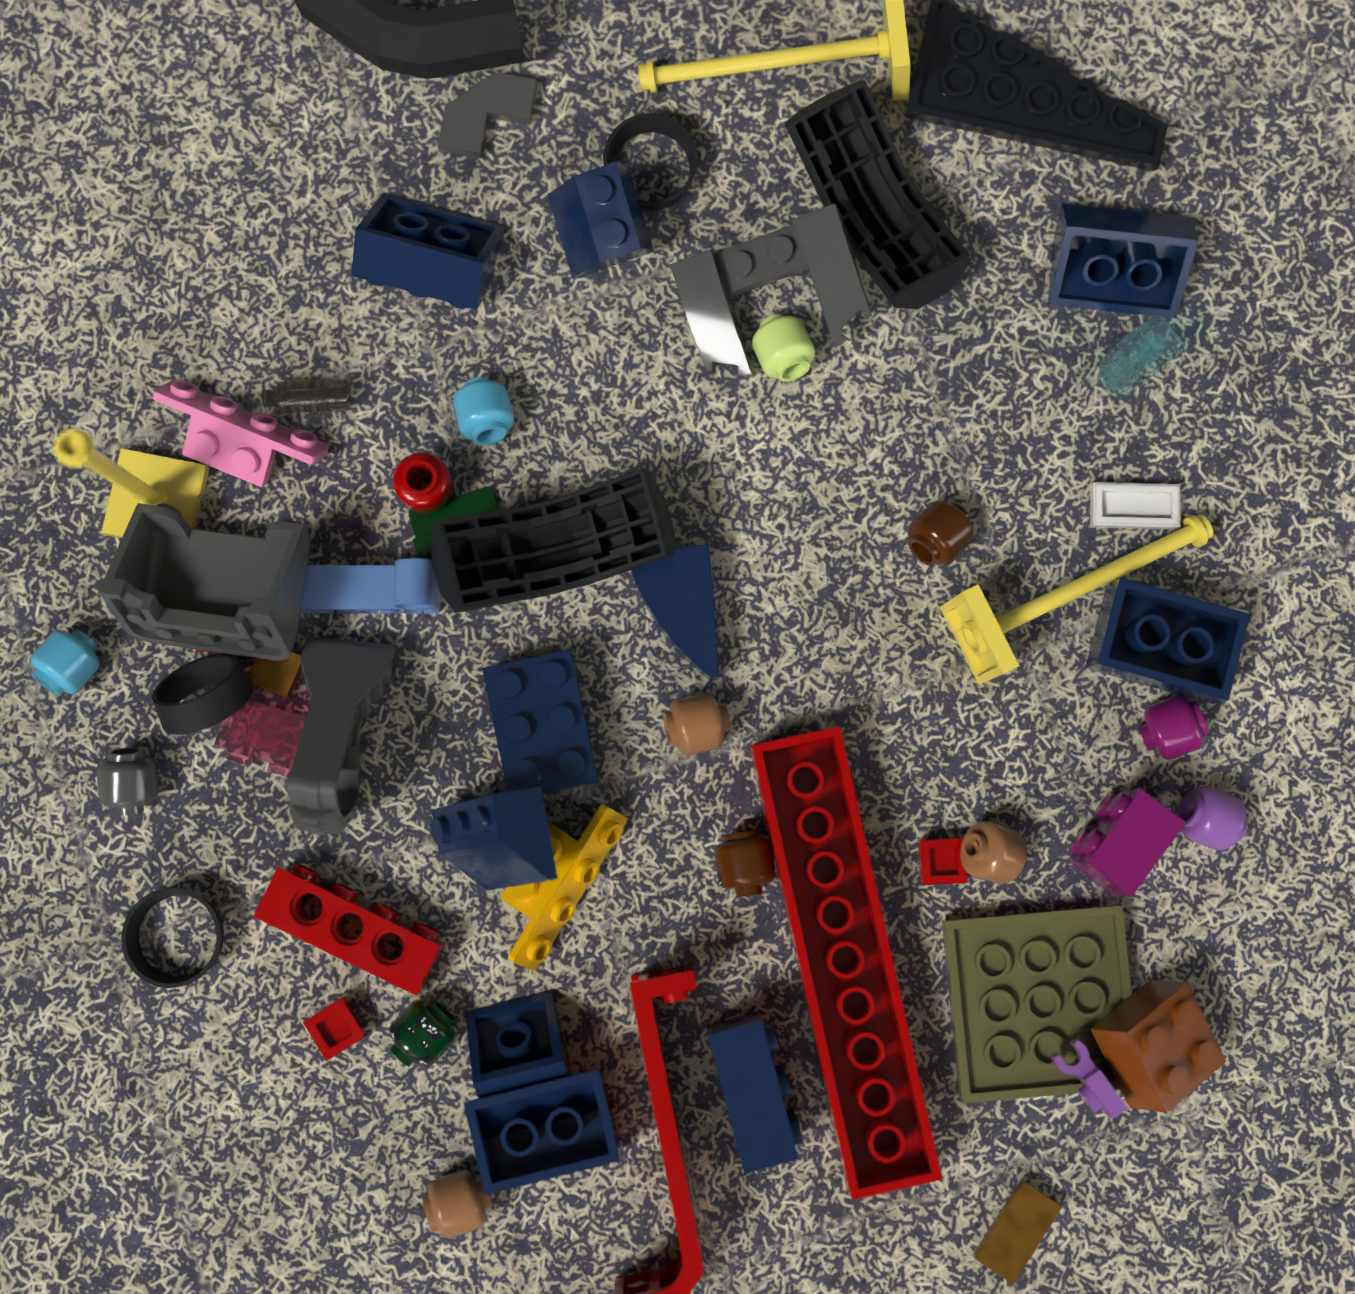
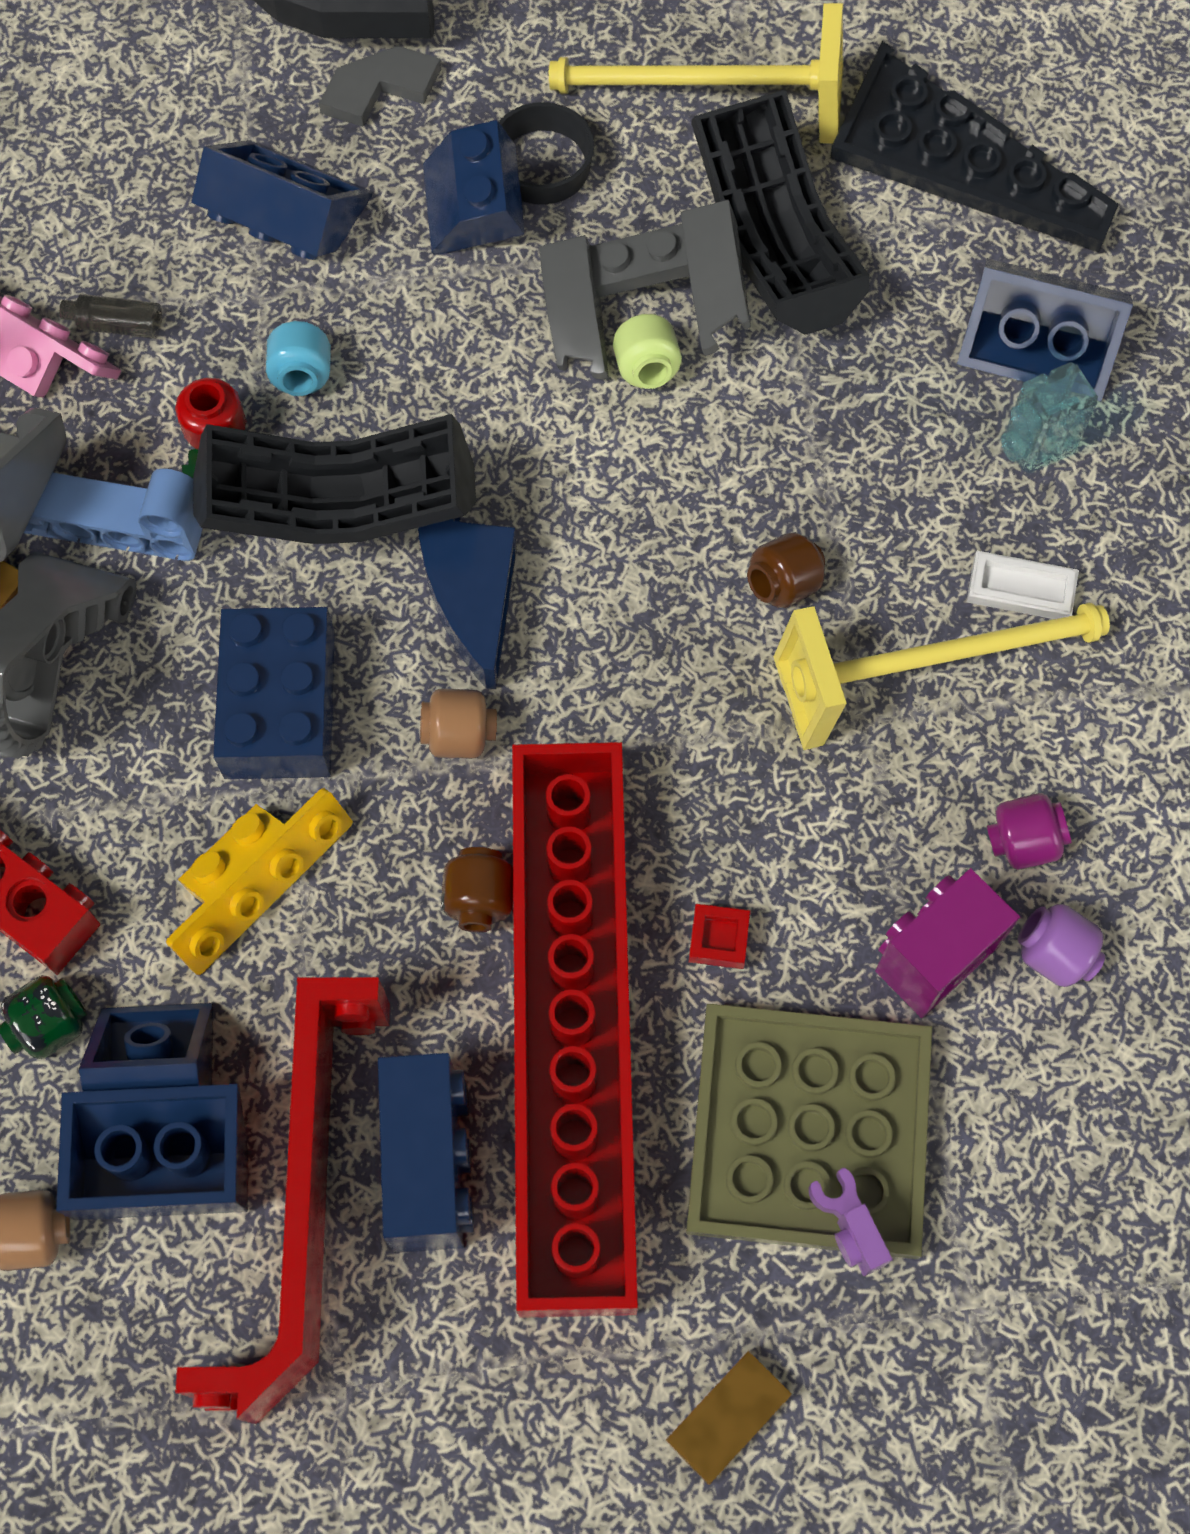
camera: 15 degrees right, 15 degrees down
(497, 838) = (184, 787): dark blue slope -> none
(993, 852) = (782, 932): medium nougat head -> none
(1158, 1045) = (948, 1198): dark orange brick -> none
(1167, 641) = (1035, 728): dark blue brick -> none

